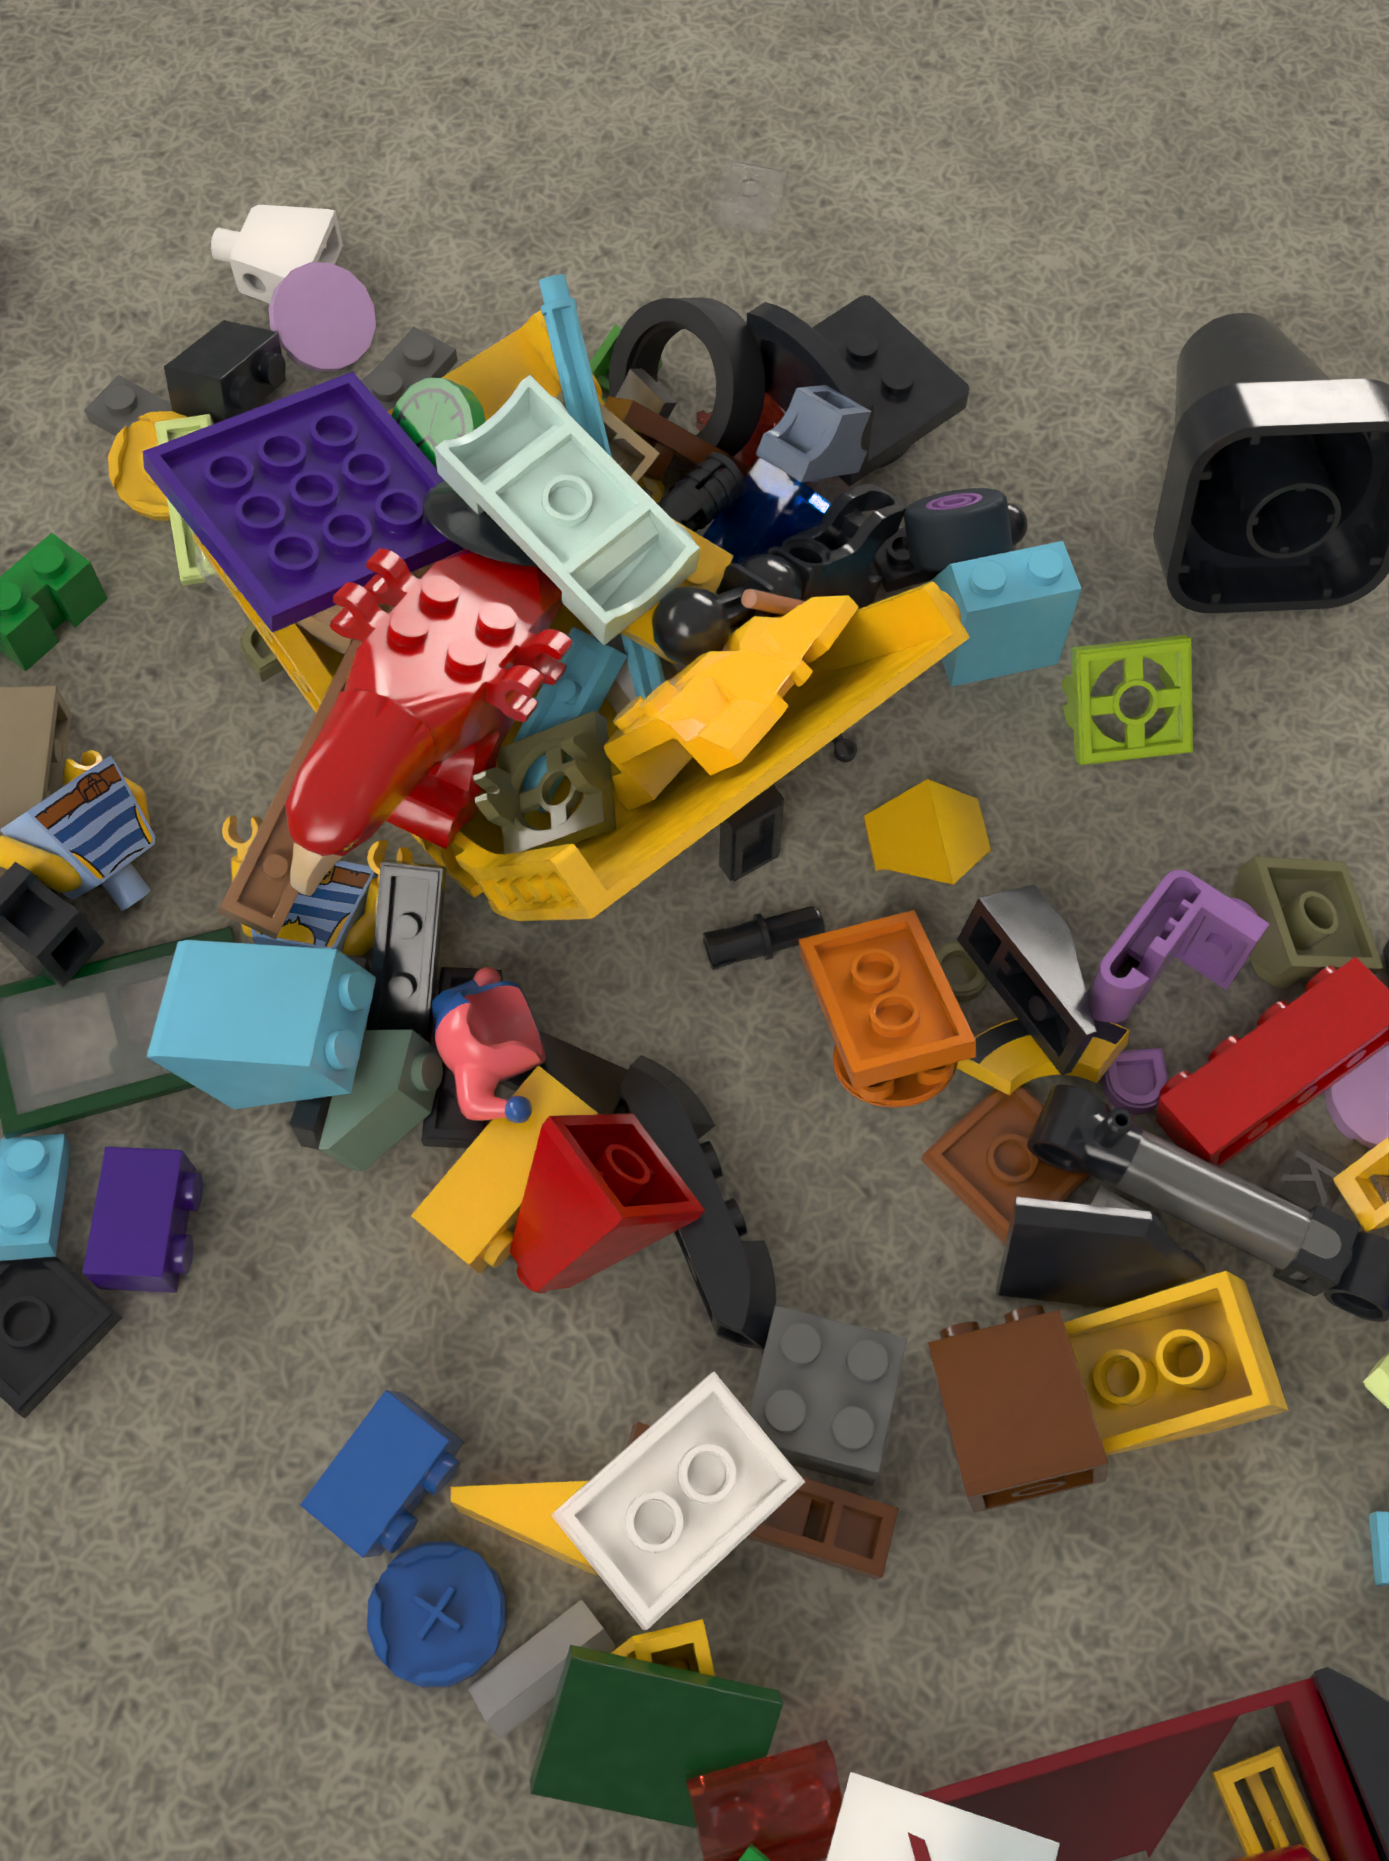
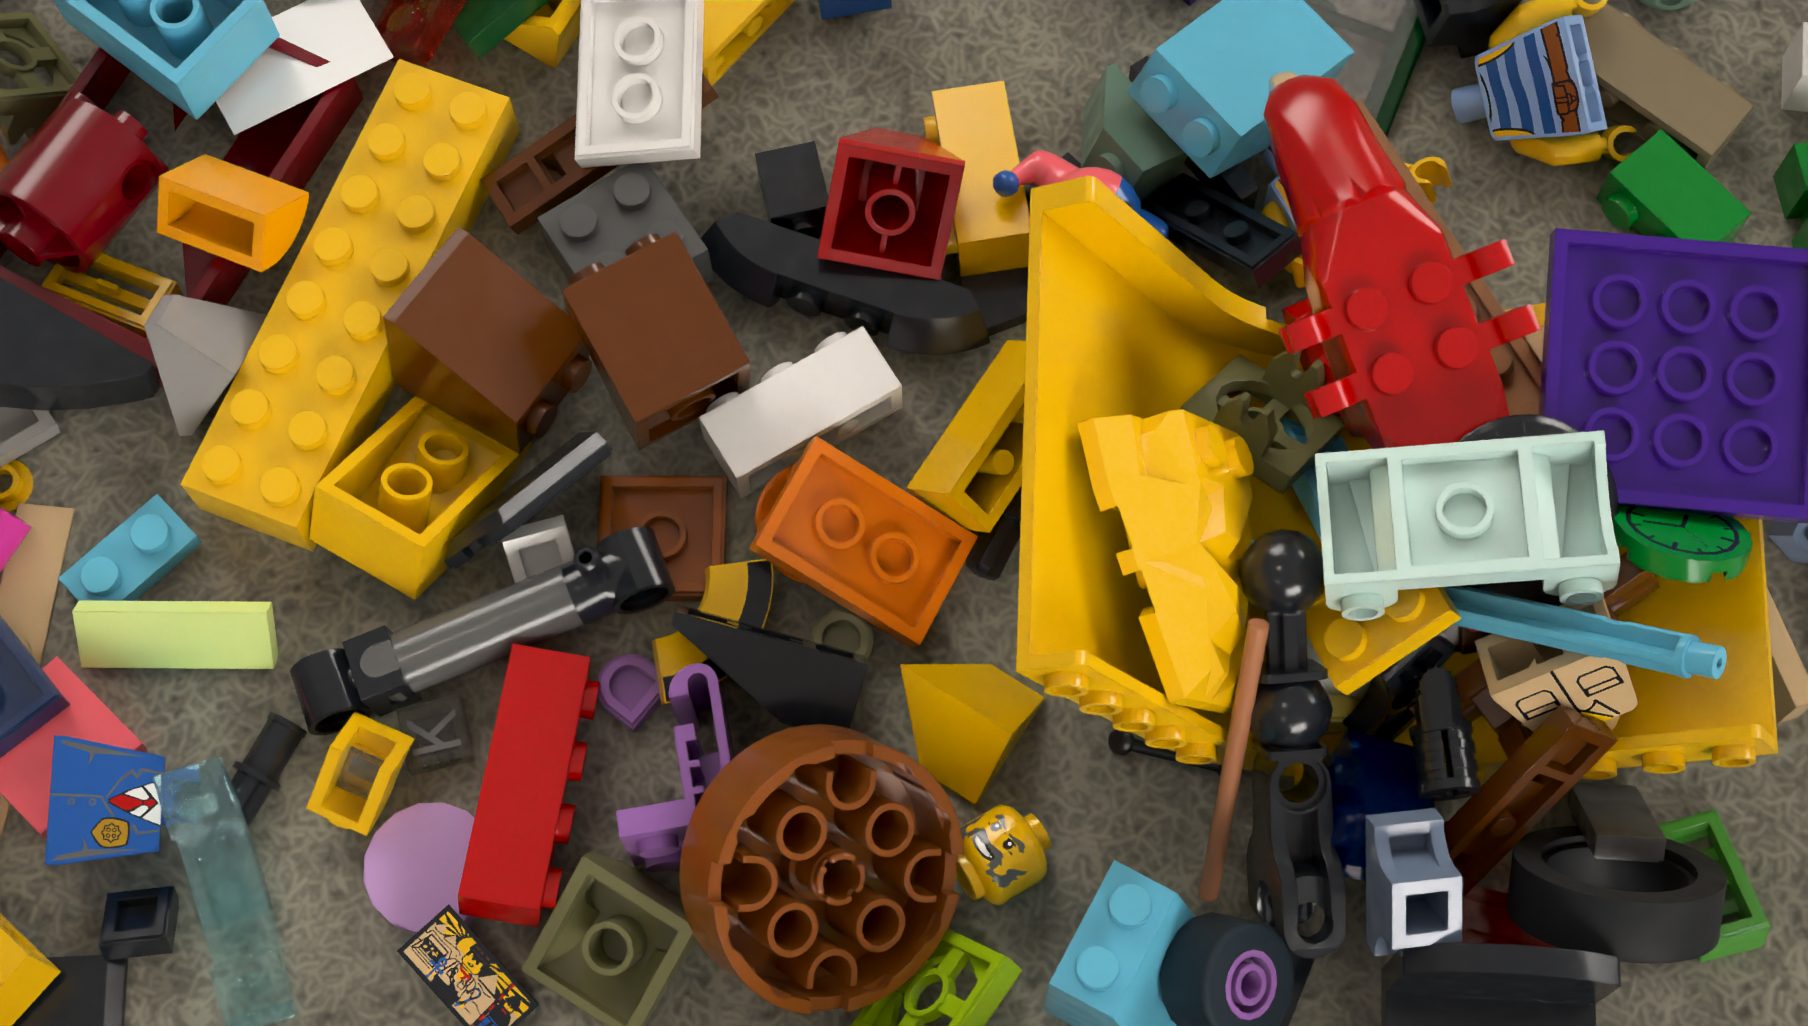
camera: 135 degrees right, 5 degrees up
(115, 697) = (1670, 195): none -> green brick
(650, 1308) = (793, 188): none -> black brick
(715, 978) = (980, 453): none -> yellow brick
(824, 1140) = (823, 396): none -> white brick
(893, 1259) = (656, 337): none -> reddish brown slope
(1001, 743) = (1002, 855): none -> yellow head
(1076, 1579) = (323, 349): none -> yellow brick
(1132, 1750) = (230, 211): none -> light orange brick
(1146, 799) = (821, 868): none -> dark orange brick
(1256, 1643) = (198, 352): none -> light grey slope

